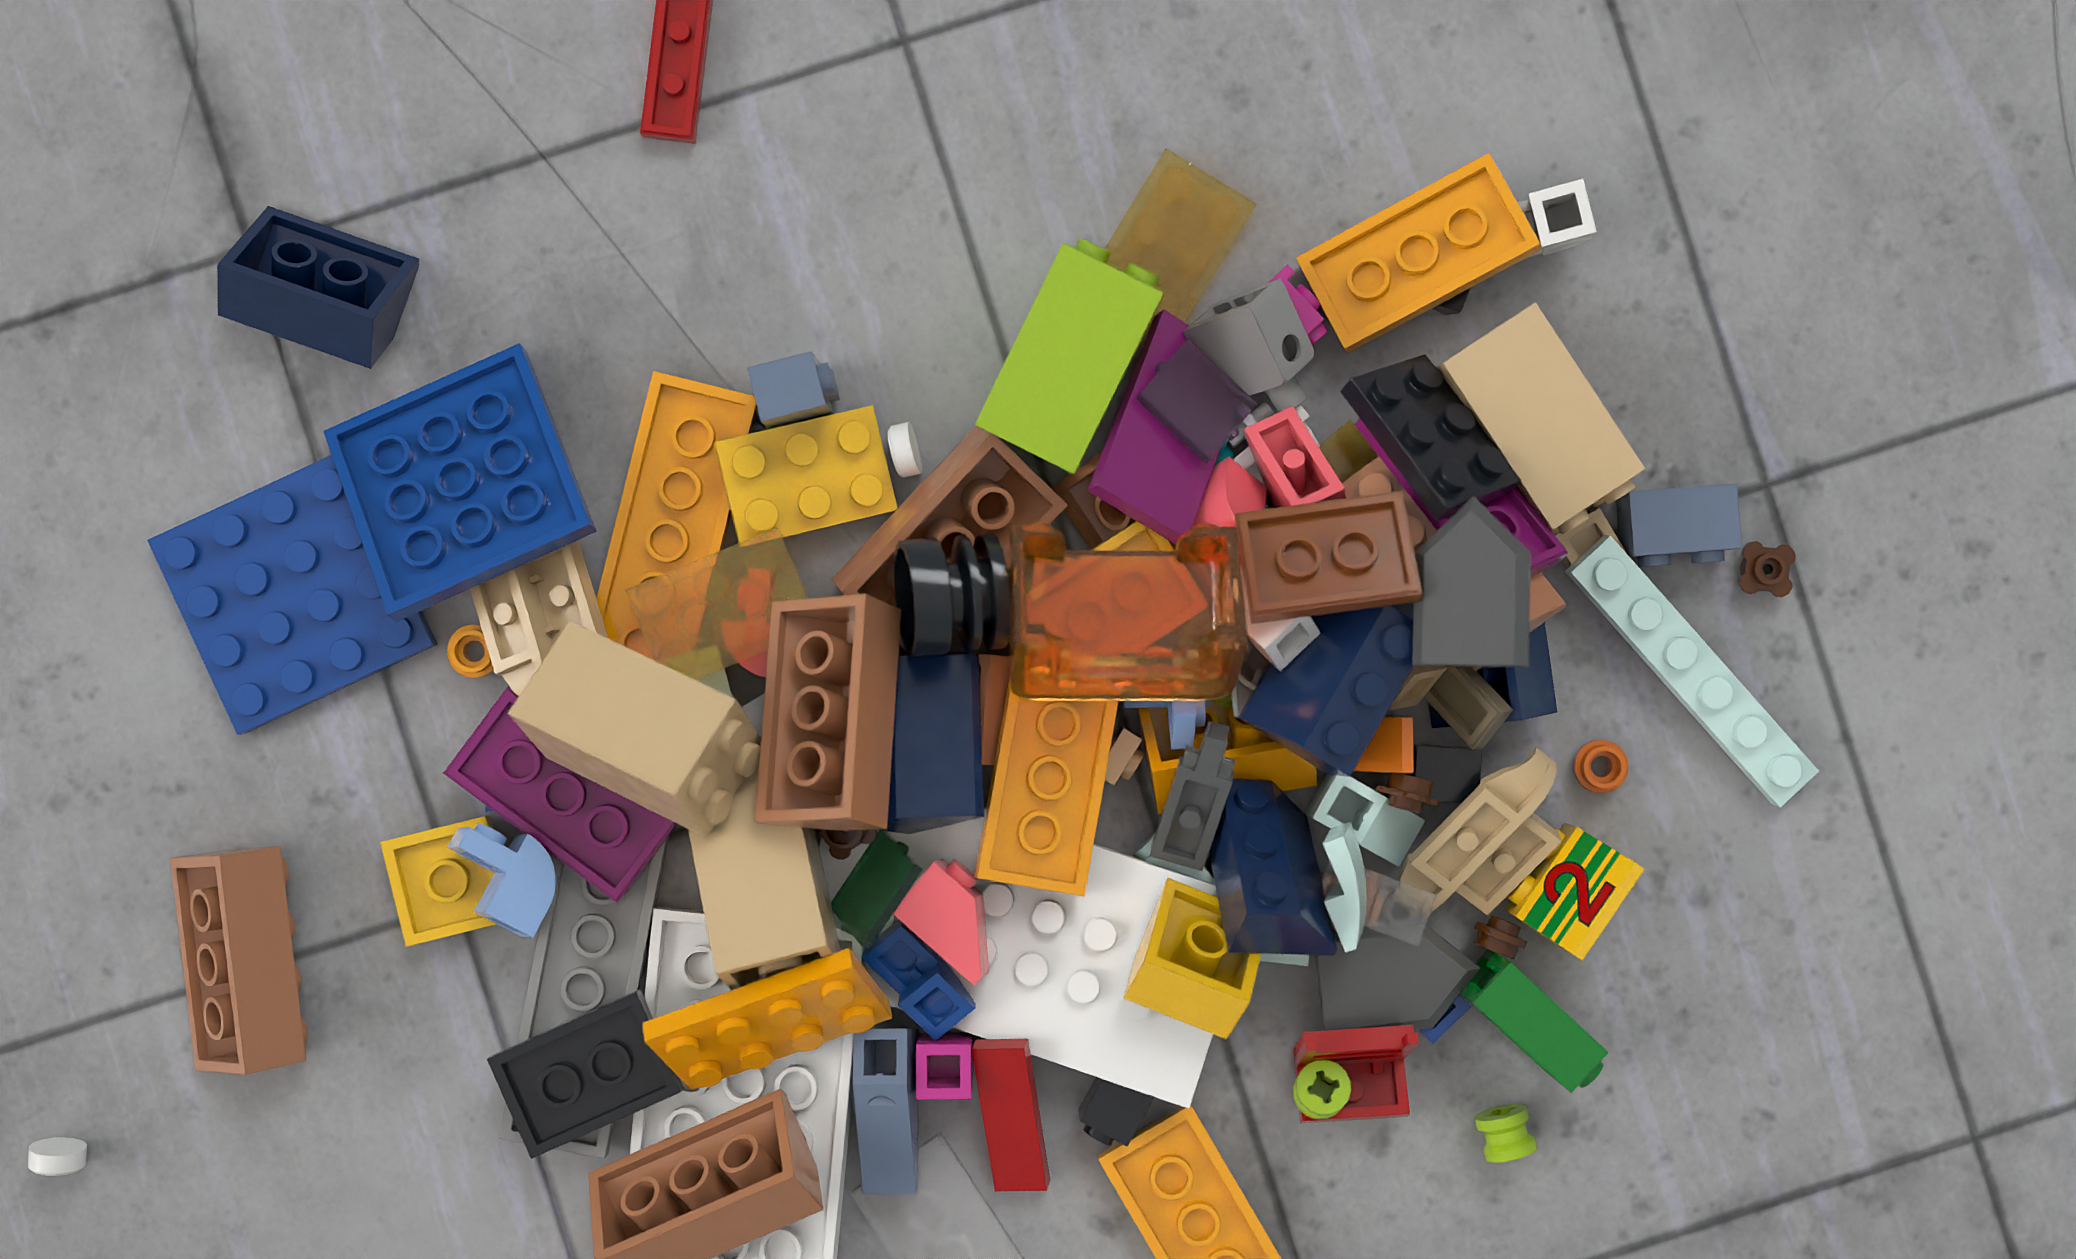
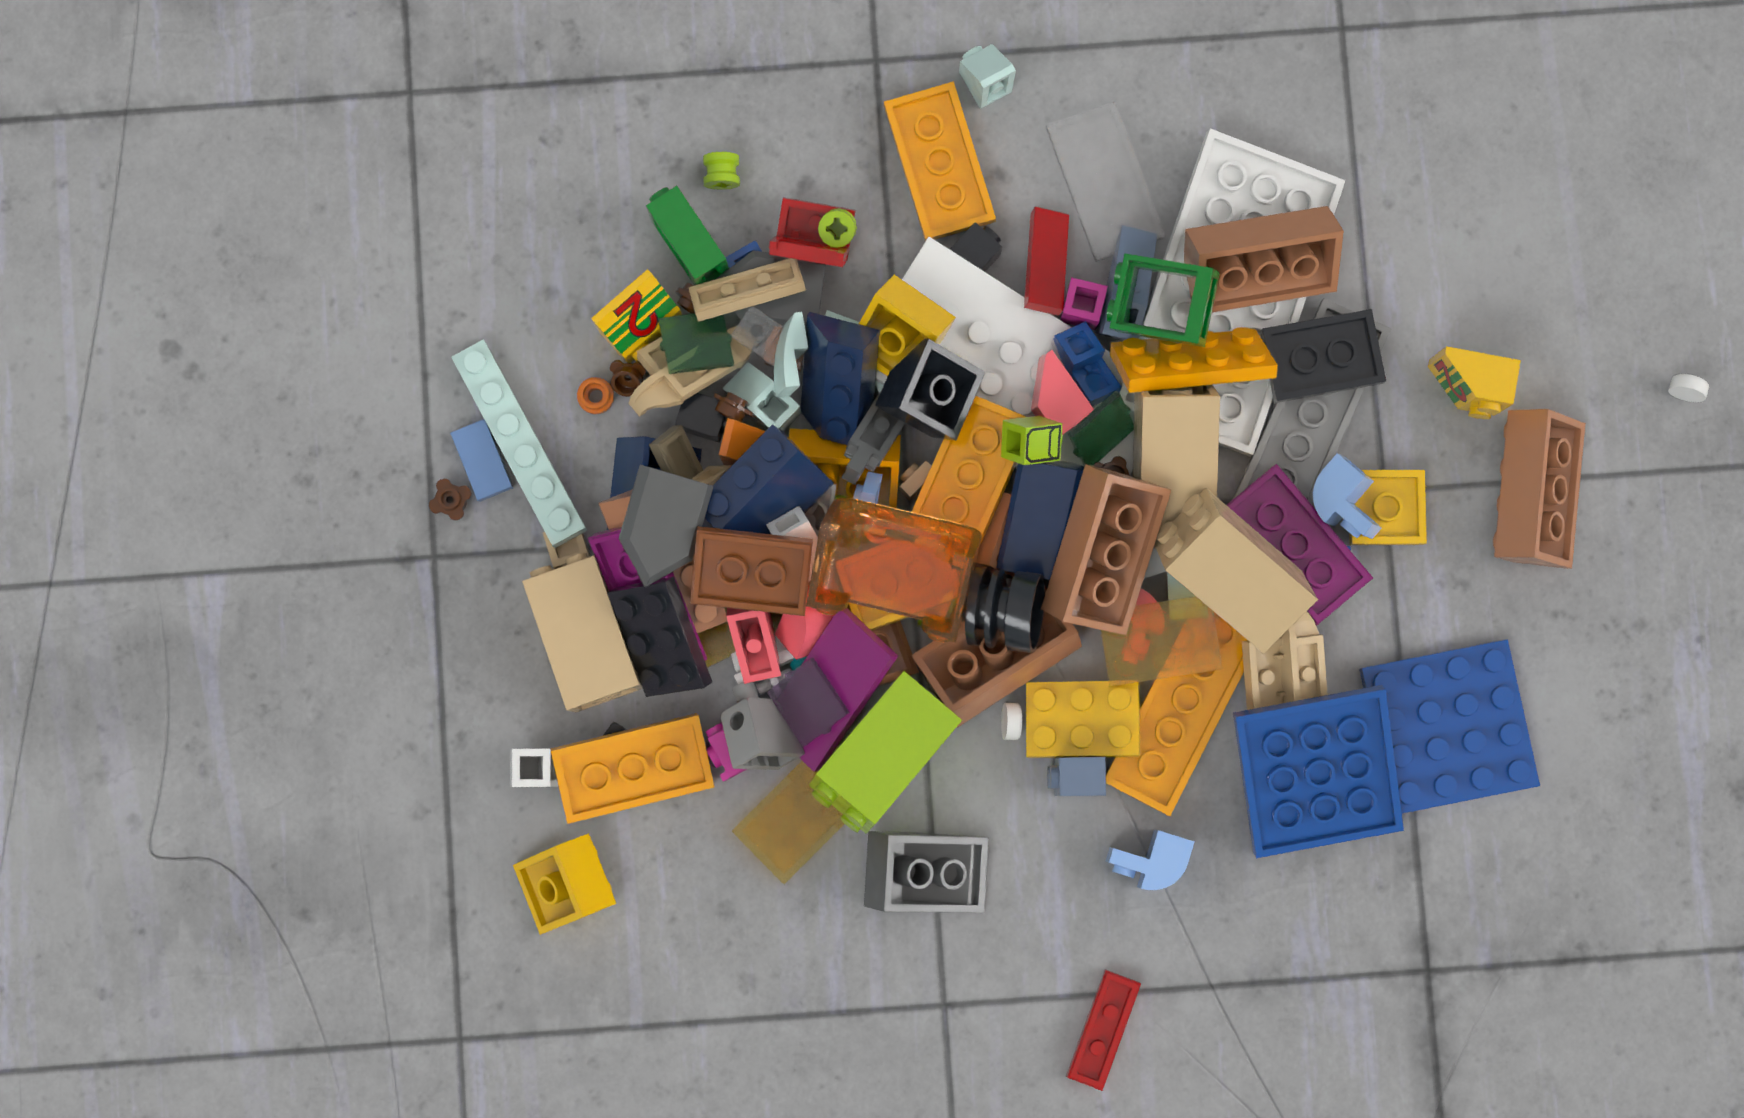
camera: 165 degrees left, 5 degrees down
(315, 286) = (1386, 931): dark blue slope -> none
(357, 1092) = (1476, 380): none -> yellow slope
(458, 652) = (1346, 656): light orange plate -> none
(648, 299) = (1163, 863): none -> light blue brick
(773, 1098) = (1200, 308): none -> green window
(972, 845) = (1031, 440): none -> lime brick
(974, 210) = (925, 872): none -> dark grey slope
(1132, 883) = (931, 390): none -> black slope
(1430, 967) = (746, 289): none -> tan tile
(1467, 74) = (564, 883): none -> yellow slope
(1483, 873) = (695, 344): none -> clear green piece
(1566, 803) = (622, 384): none -> reddish brown plate
(1679, 522) = (501, 544): sand blue brick -> none
(1736, 634) = (481, 460): none -> medium blue tile

